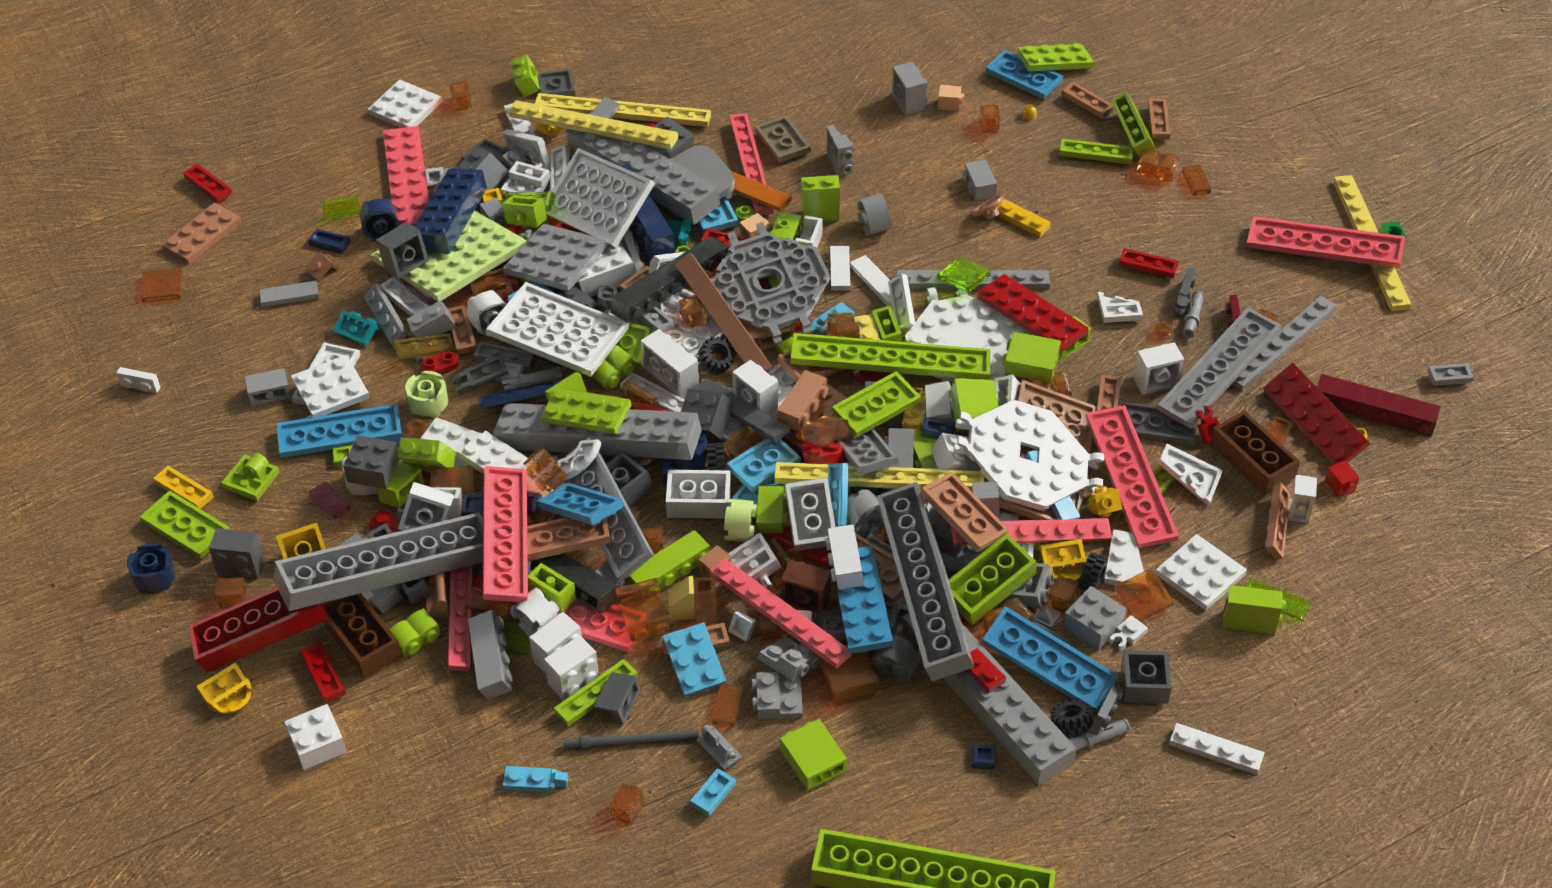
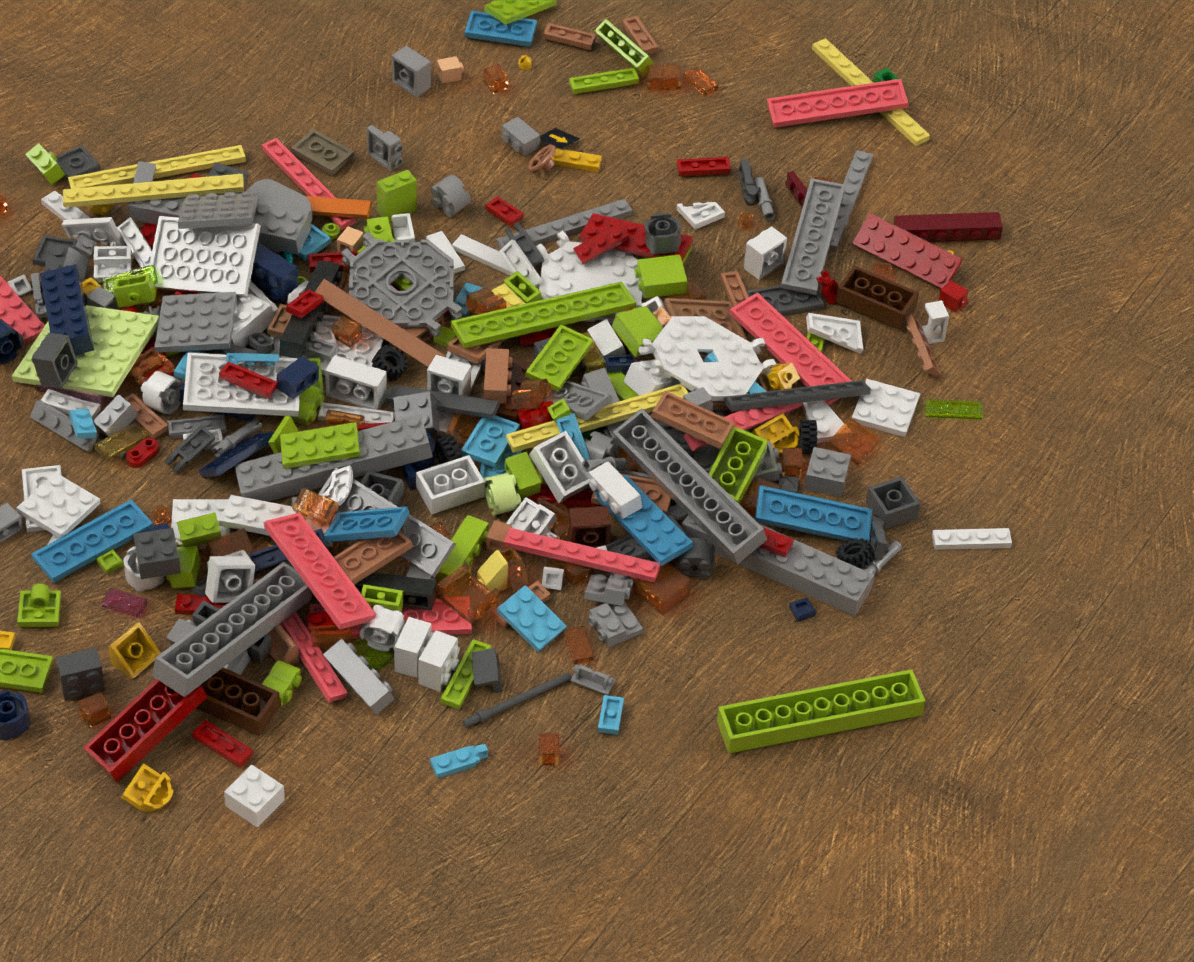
camera: 30 degrees left, 0 degrees up
(356, 328) = (44, 446): teal bracket -> none
(396, 318) = (82, 424): none -> medium azure plate
(427, 394) = (154, 482): yellowish green brick -> none
(560, 325) = (248, 380): none -> red plate
(576, 306) = (251, 359): none -> medium azure hinge
(607, 338) = (297, 377): none -> dark blue panel
(629, 158) = (218, 210): none -> light grey plate
(659, 270) = (304, 303): none -> red plate
(813, 754) = (671, 656): lime brick -> none
(840, 455) = (559, 409): none -> lime plate
(861, 528) = (617, 463): none -> light grey pin
(917, 285) = (525, 244): none -> dark grey hinge
(921, 246) = (504, 211): none -> red plate
(963, 274) = (559, 224): clear neon green tile -> none
(991, 305) = (601, 243): none -> red plate
(1005, 395) = (662, 316): none -> clear orange tile
(1017, 193) = (558, 138): none -> black sticker
(1053, 314) = (663, 234): none -> dark grey brick
(1104, 525) = (797, 395): none -> dark grey tile
(1129, 631) = (857, 474): white plate -> none
(1253, 609) = (944, 422): lime brick -> none
(1450, 374) = (989, 184): light grey plate -> none

